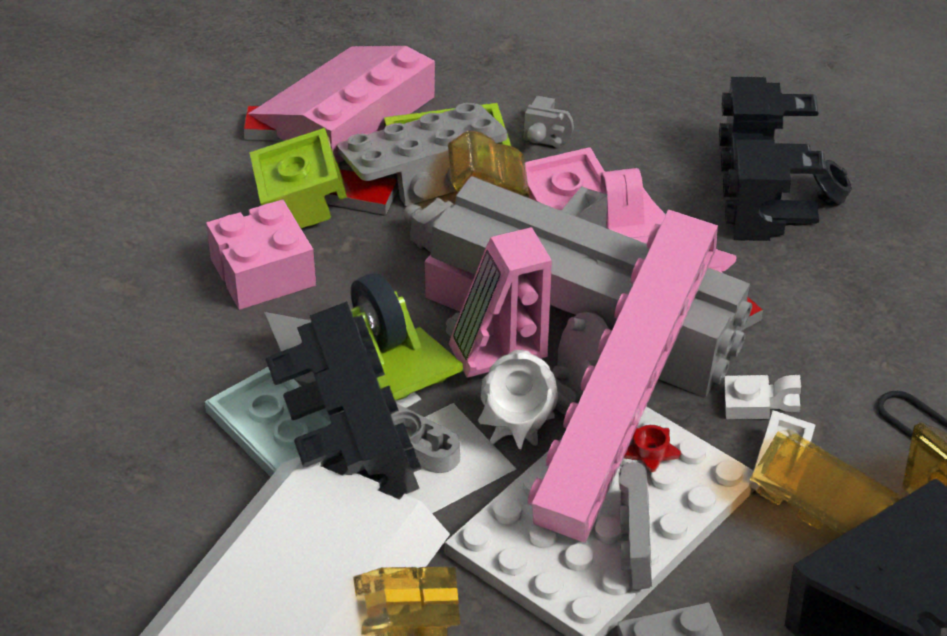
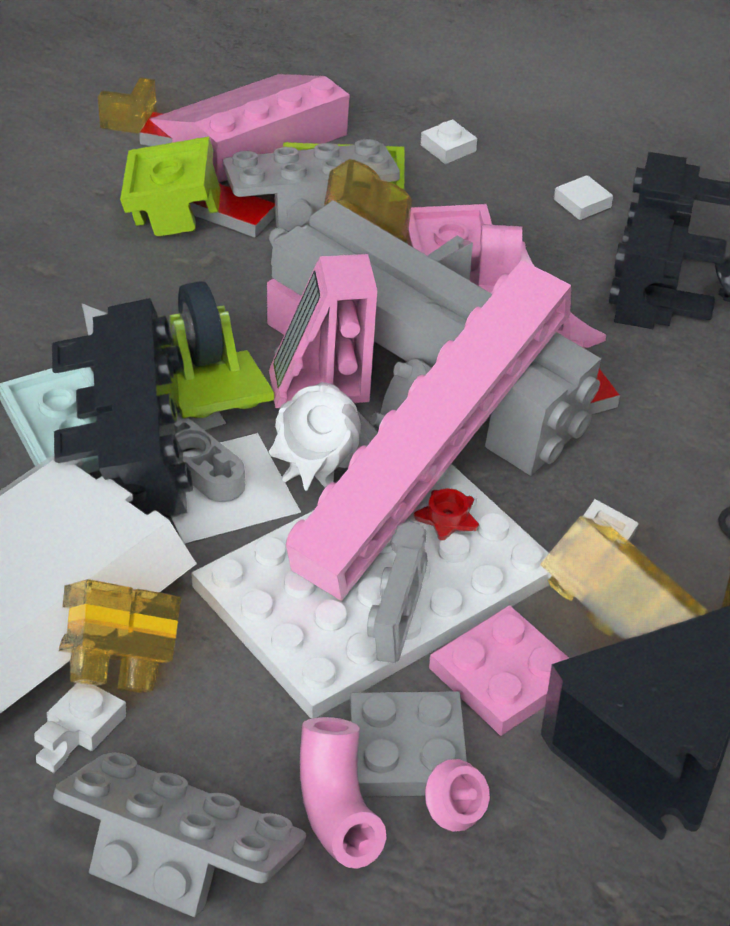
camera: 10 degrees right, 0 degrees up
(225, 110) = (128, 111): none -> clear yellow panel
(261, 254) = (108, 251): bright pink piece -> none
(531, 84) = (448, 141): none -> white plate
(547, 124) = (450, 174): light grey piece -> none
(671, 124) = (583, 197): none -> white tile
(737, 575) = (499, 668): none -> bright pink plate
(753, 396) = (581, 481): white plate -> none

